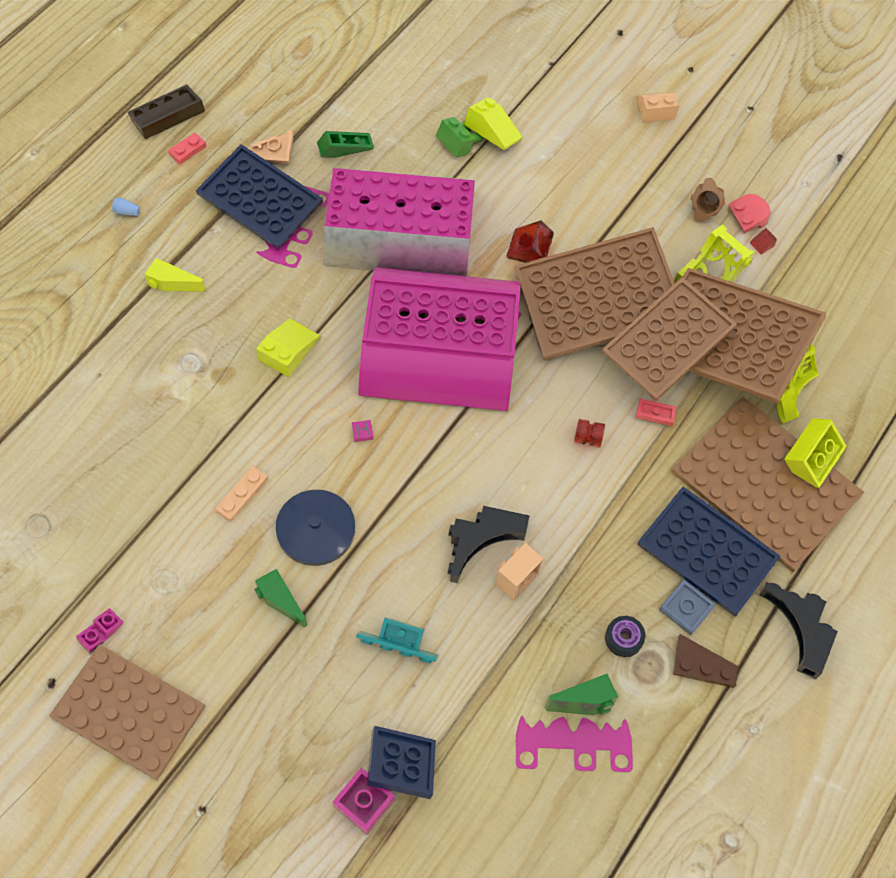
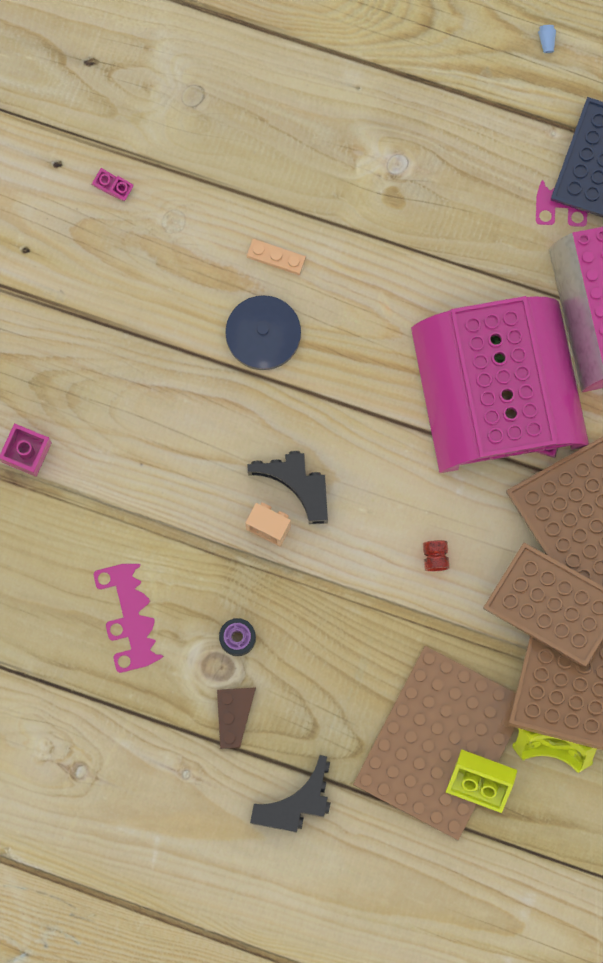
camera: 80 degrees right, 15 degrees up
(127, 711) = (50, 234): medium nougat plate -> none
(171, 278) = (479, 110): neon yellow slope -> none
(277, 595) = (187, 319): green slope -> none
(286, 346) = (442, 245): neon yellow slope -> none
(362, 431) = (374, 343): dark pink tile -> none
(400, 637) = (176, 438): teal bracket -> none
(401, 762) = (64, 470): dark blue plate -> none
(586, 698) = (167, 617): green slope -> none
(656, 412) = (482, 619): coral plate -> none
(687, 607) = (285, 689): sand blue tile -> none
(709, 550) = (348, 698): dark blue plate -> none

